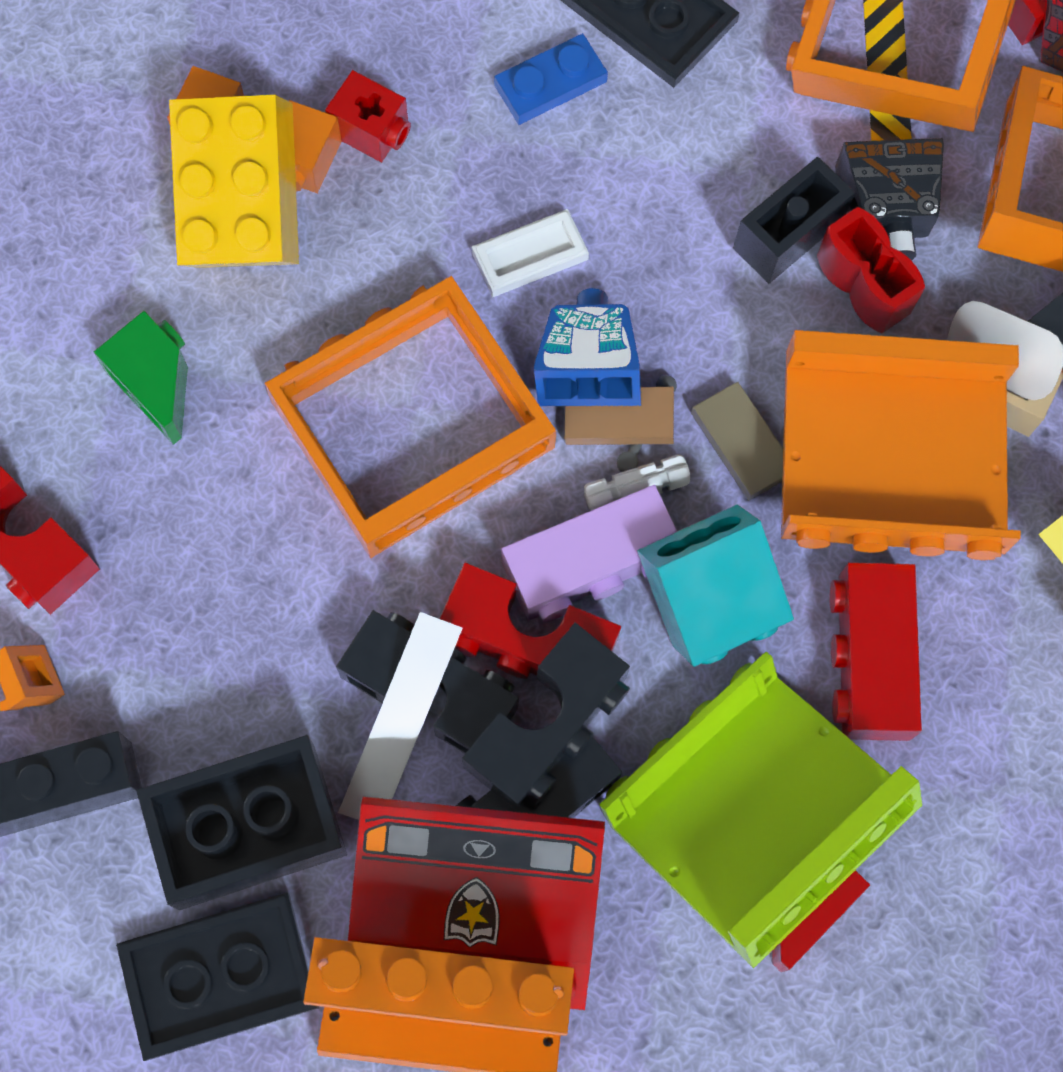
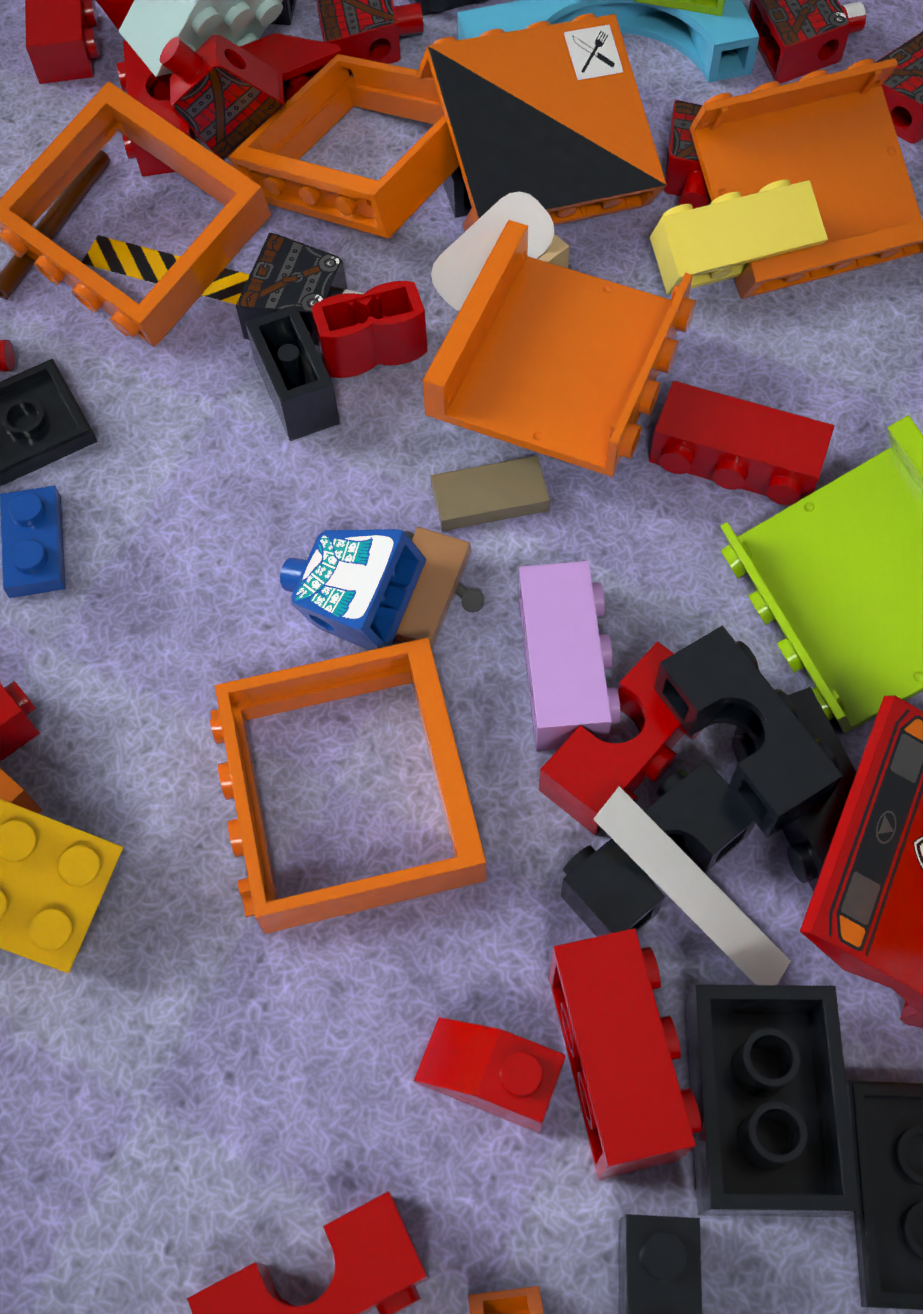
camera: 65 degrees left, 10 degrees down
(149, 370) = (178, 1055): green slope -> none
(206, 610) = (491, 1071): none -> red slope
(238, 694) = (622, 1054): none -> red brick
(530, 253) = (212, 619): white tile -> none
(672, 473) = (500, 596): white axle -> none
(716, 585) = (640, 545): teal piece -> none

